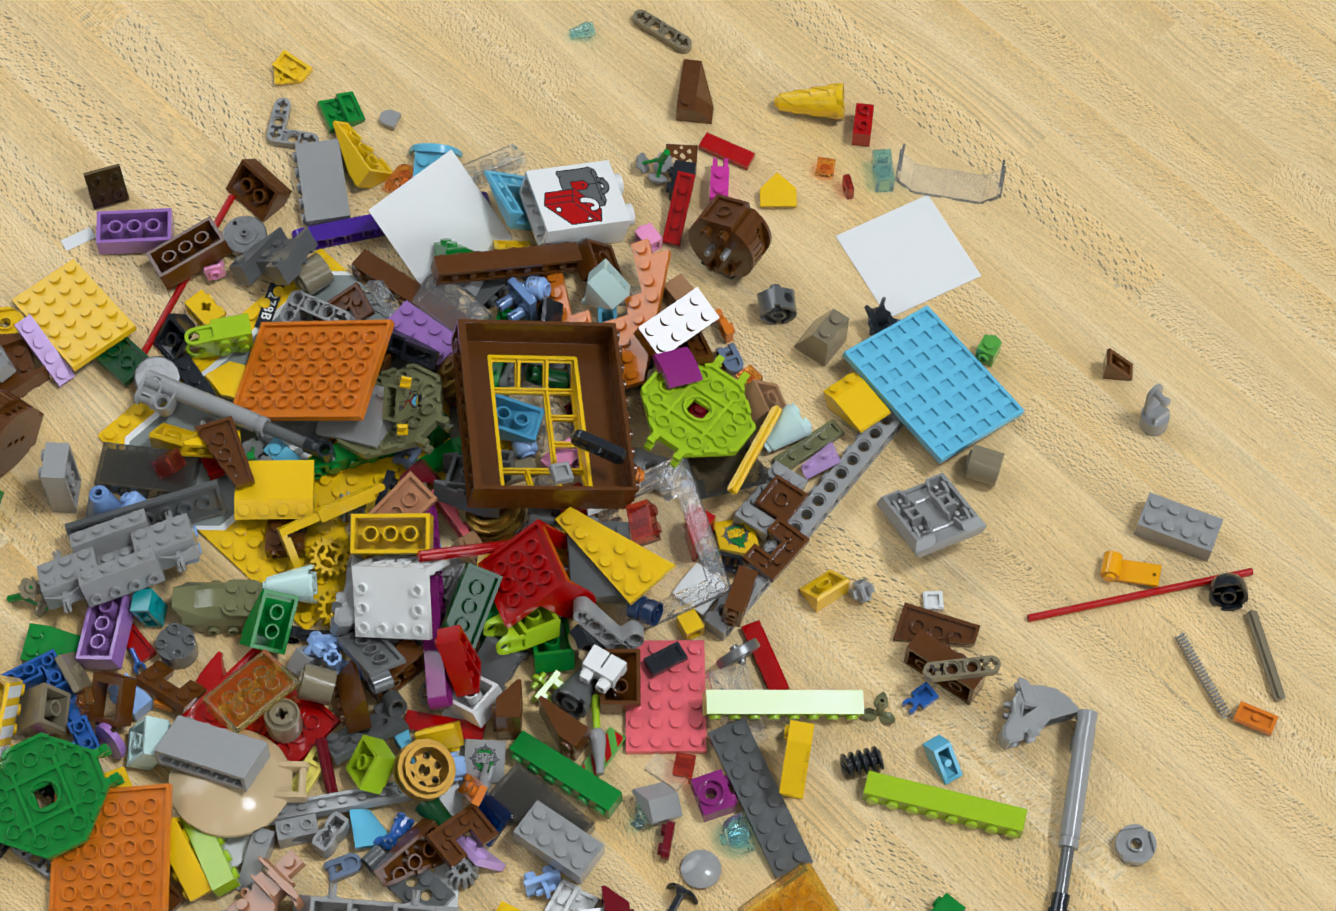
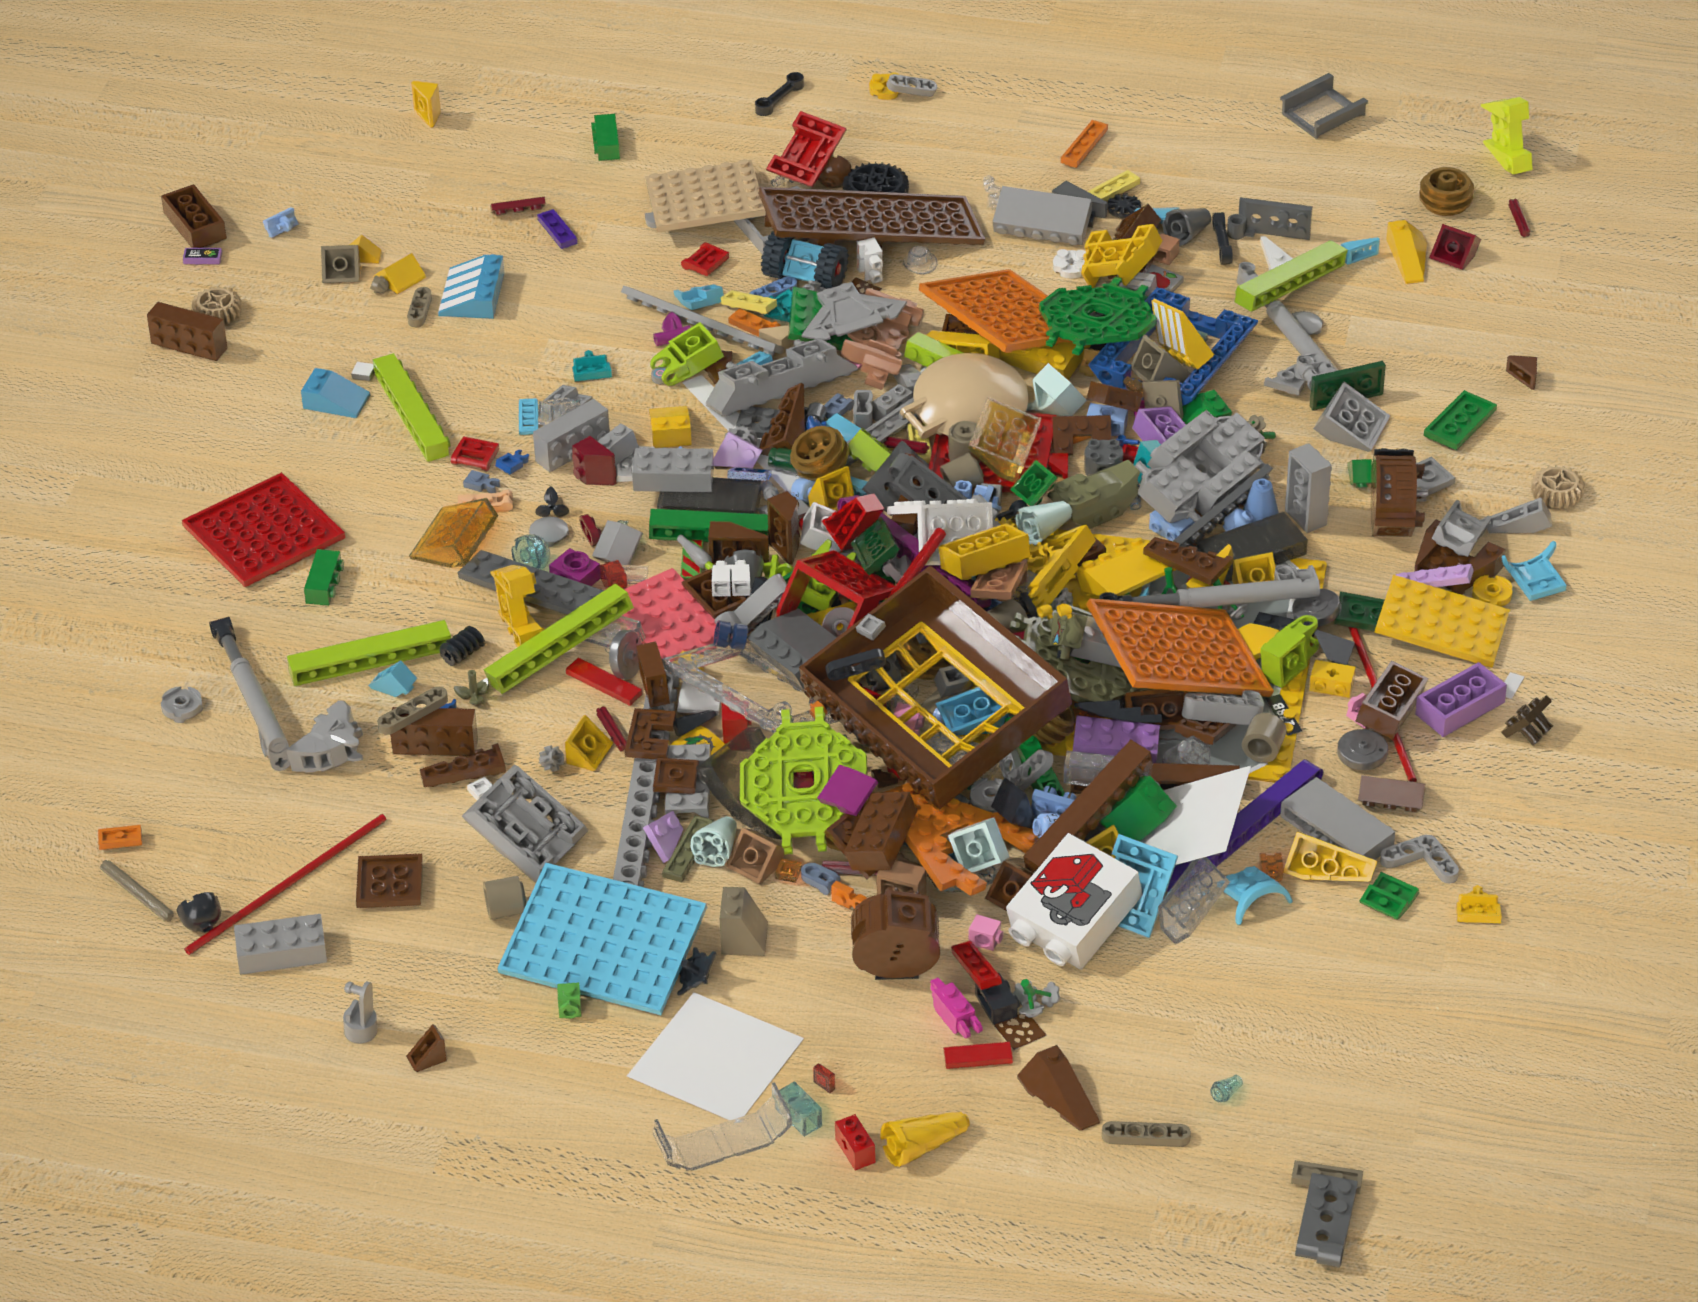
camera: 150 degrees right, 20 degrees down
(112, 739) = (1084, 376): medium lavender tile -> none
(168, 463) = (1237, 539): clear red panel -> none
(212, 753) = (1006, 380): light grey brick -> none
(274, 256) = (1302, 733): dark grey wedge -> none
(389, 119) = (1336, 914): light grey tile -> none
(467, 820) = (766, 435): reddish brown plate -> none
(473, 789) = (773, 473): orange plate -> none
(623, 562) = (775, 636): yellow wing -> none
(643, 522) = (781, 682): clear red brick -> none
(665, 659) = (688, 630): black tile -> none
(754, 450) = (727, 786): yellow axle -> none
(777, 304) = (807, 928): dark grey brick -> none
(778, 193) = (892, 1040): yellow slope -> none
(790, 604) = (612, 728): none -> dark red axle
(825, 167) = (862, 1086): clear orange plate -> none
(855, 402) = (666, 877): yellow slope -> none
(1059, 545) = (389, 880): none -> reddish brown plate
(1134, 572) = (324, 890): light orange door -> none
(1205, 674) = (192, 854): light grey piece -> none

